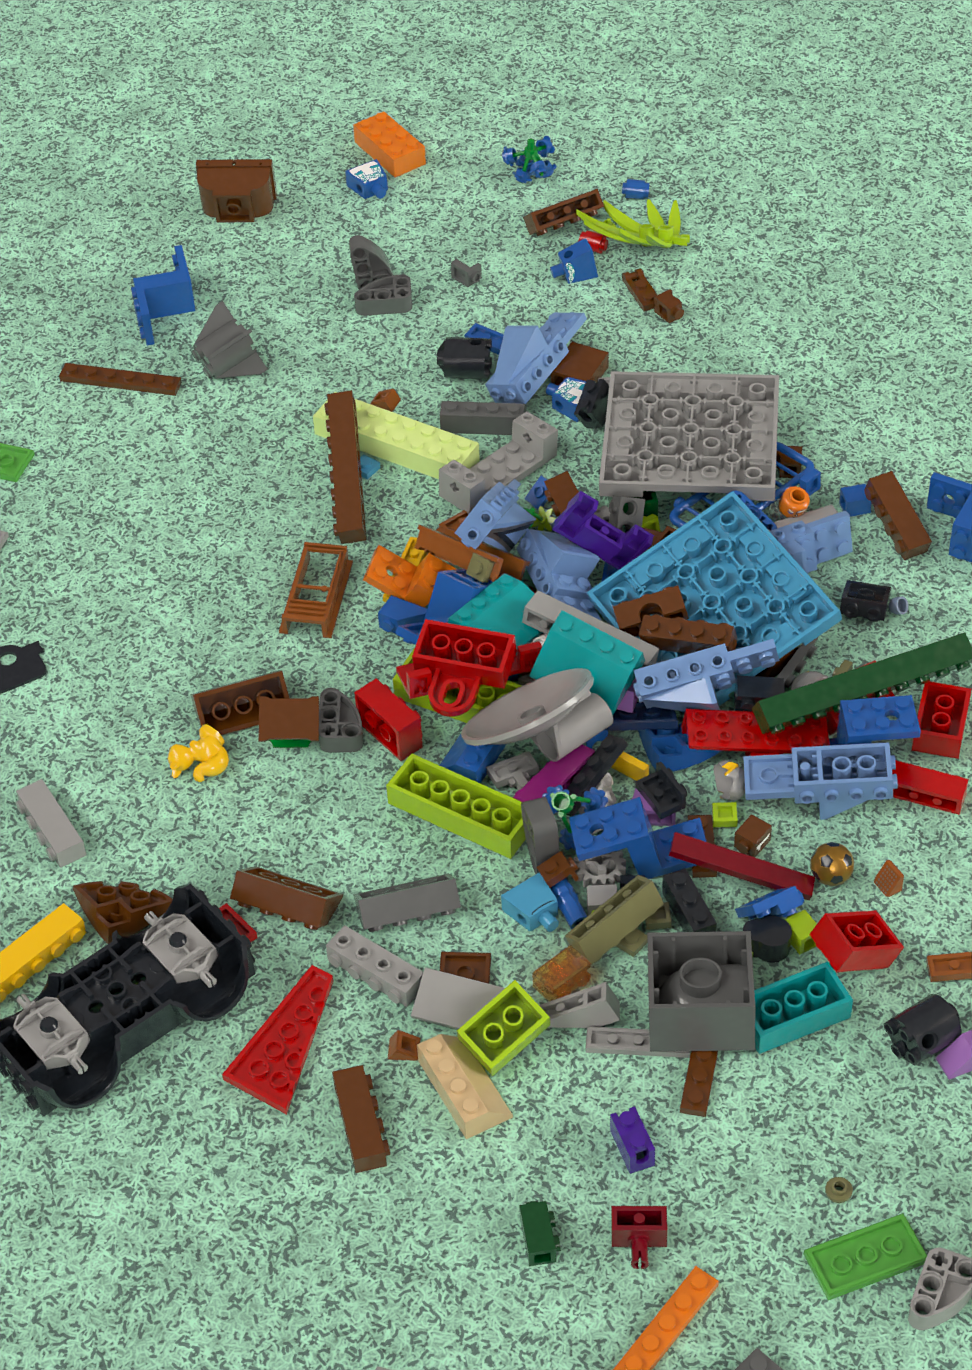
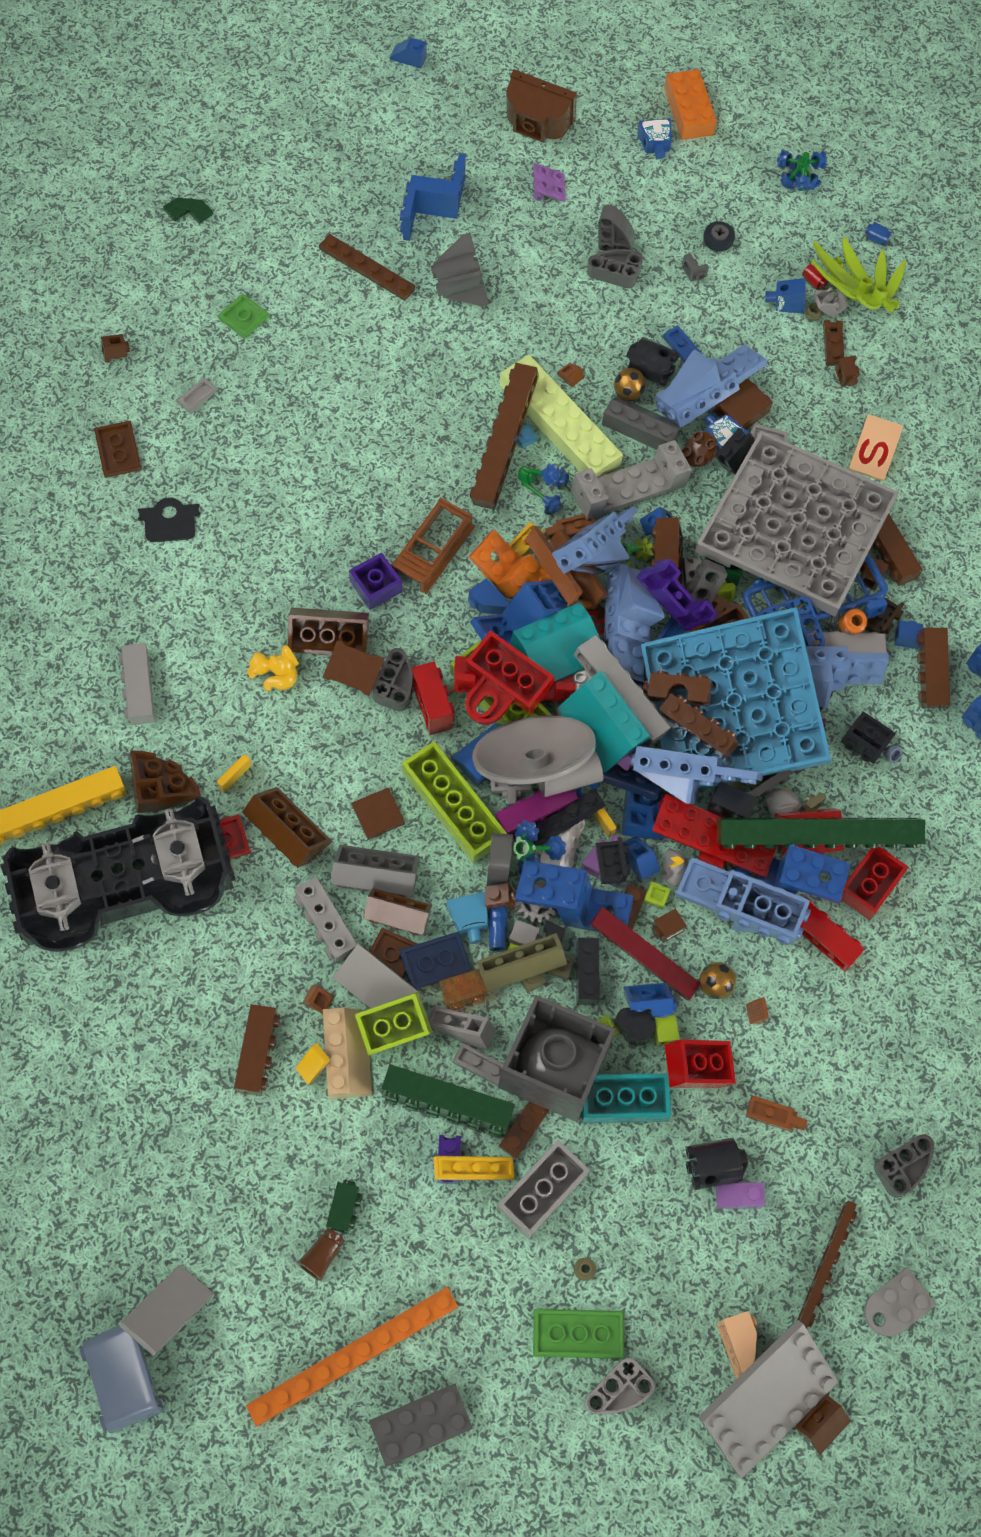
camera: 15 degrees right, 20 degrees up
(75, 188) = (410, 52): none -> blue slope
(202, 865) = (234, 773): none -> yellow tile
(271, 639) = (375, 581): none -> dark purple brick
(276, 250) = (548, 183): none -> medium lavender hinge
(277, 1052) = (219, 965): red wing -> none
(381, 850) = (378, 813): none -> reddish brown tile
(418, 484) = (552, 476): none -> blue plant
(431, 1103) = (312, 1064): none -> yellow tile
(452, 928) = (397, 911): none -> brick
(453, 384) = (629, 384): none -> pearl gold piece
(477, 240) = (719, 236): none -> black wheel
(480, 568) = (561, 590): olive plate -> none
(515, 958) = (435, 960): none -> dark blue tile
(536, 1291) = (321, 1254): none -> reddish brown plant
(557, 413) = (700, 449): none -> reddish brown dish
(562, 212) = (803, 236): reddish brown brick -> none
(602, 1080) = (447, 1100): none -> dark green brick
(607, 270) = (813, 308): none -> olive plate
(622, 257) = (831, 303): none -> light grey hand
(639, 1229) = (417, 1240): dark red brick -> none
(665, 1132) = (473, 1168): none -> yellow tile
(697, 785) = (641, 858): none -> blue slope
(732, 351) = (875, 447): none -> light nougat slope
(751, 1126) = (543, 1189): none -> light grey brick
(816, 443) = (896, 553): none -> reddish brown brick
(825, 495) = (883, 622): none -> dark brown bracket

